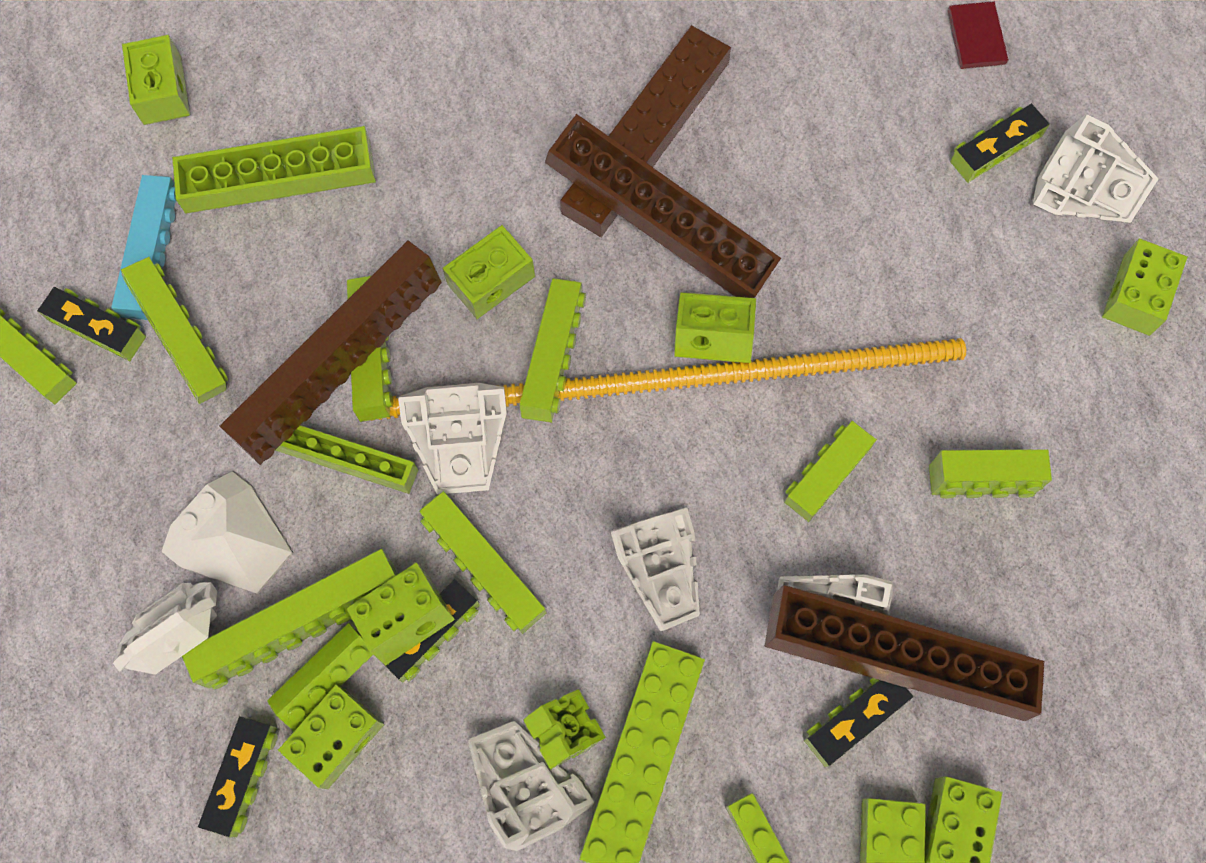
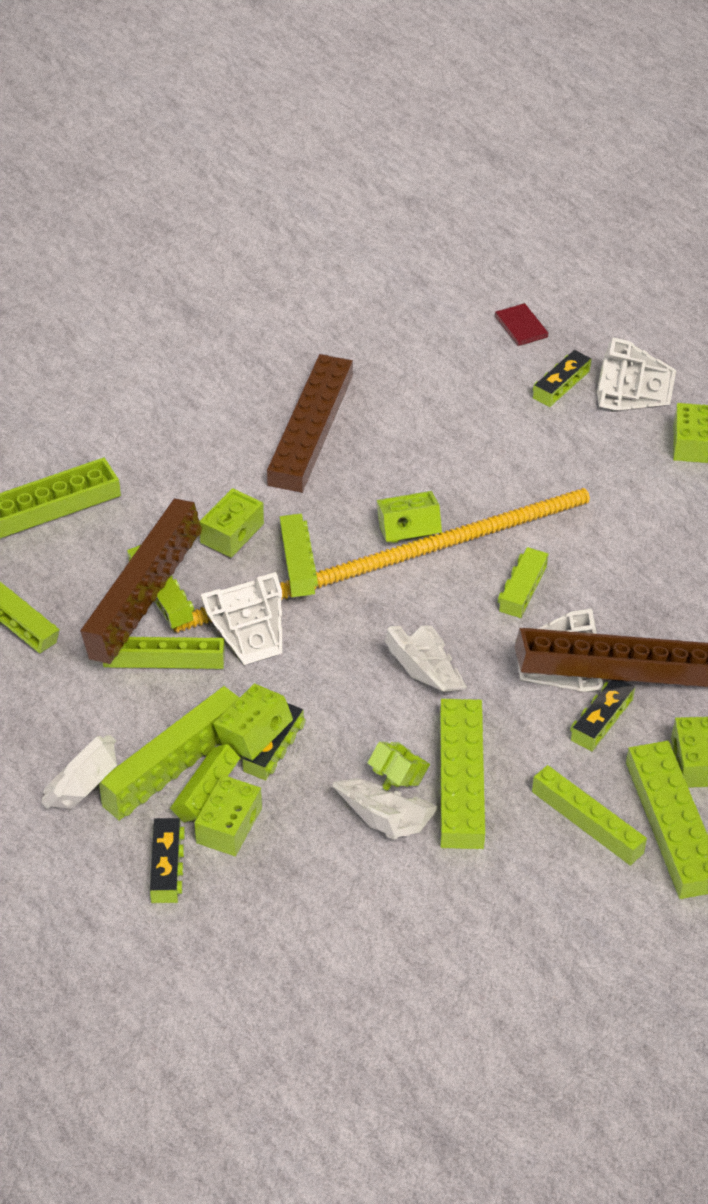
camera: 20 degrees left, 25 degrees down
(228, 536) = (90, 715): white wedge -> none
(482, 562) = (298, 691): lime brick -> none
(661, 209) = (341, 454): reddish brown brick -> none
(989, 472) = (632, 553): lime brick -> none

